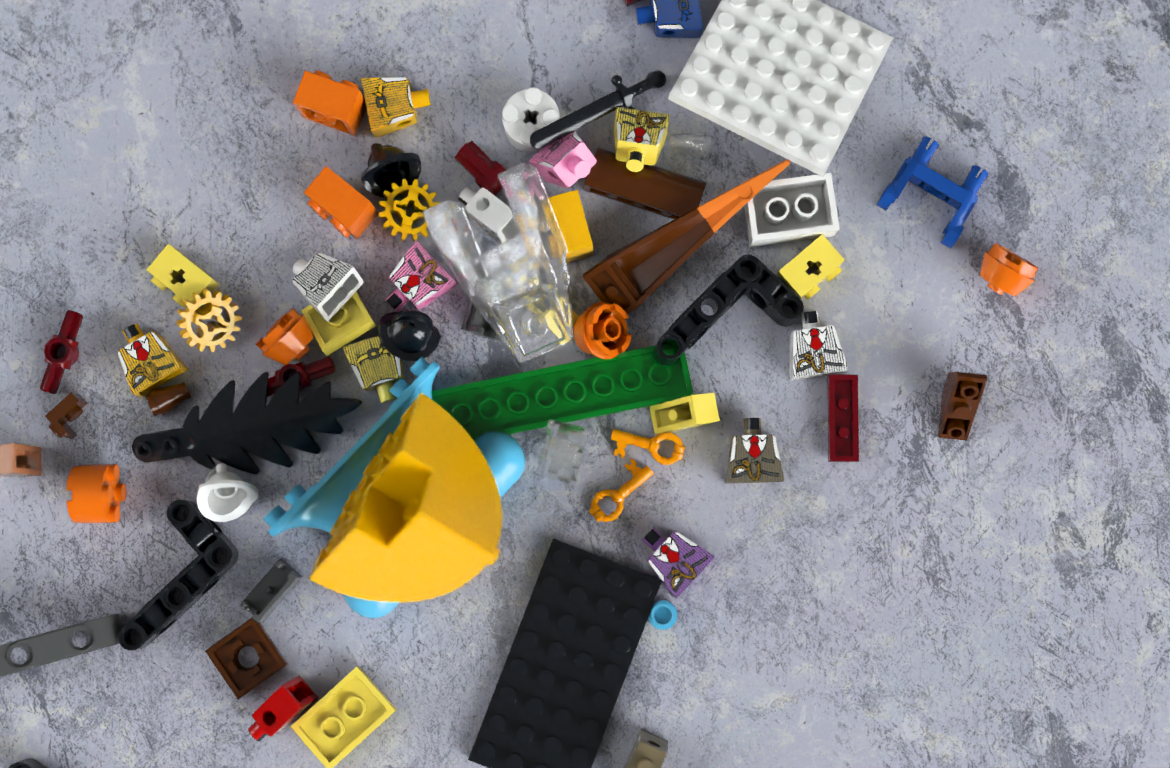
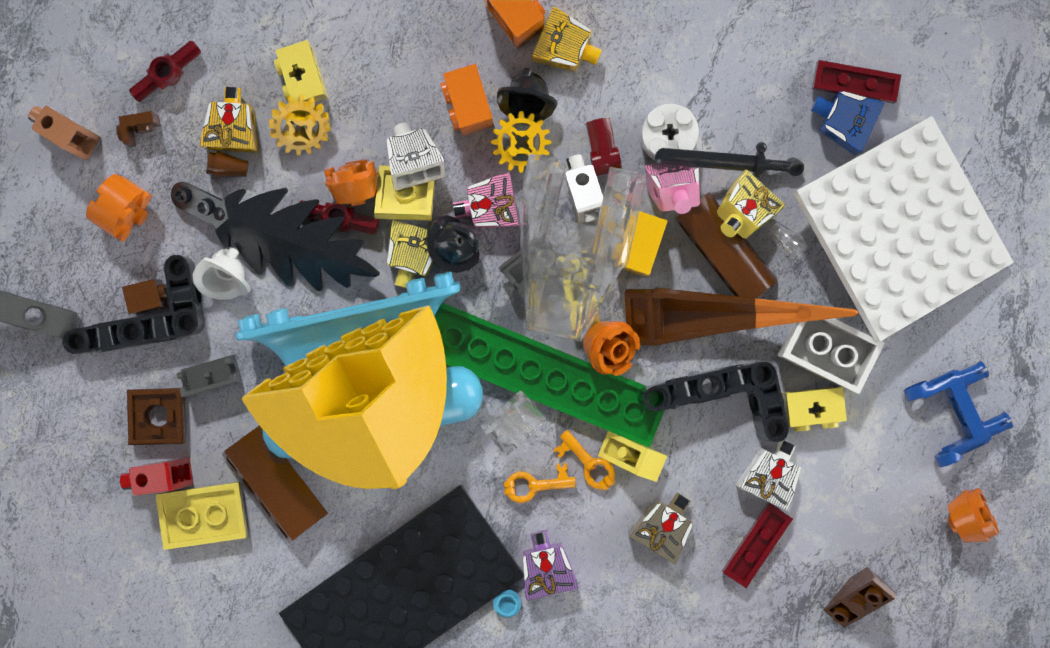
camera: 35 degrees right, 5 degrees up
(169, 557) = (145, 296): none -> reddish brown brick
(390, 647) = (274, 485): none -> reddish brown brick

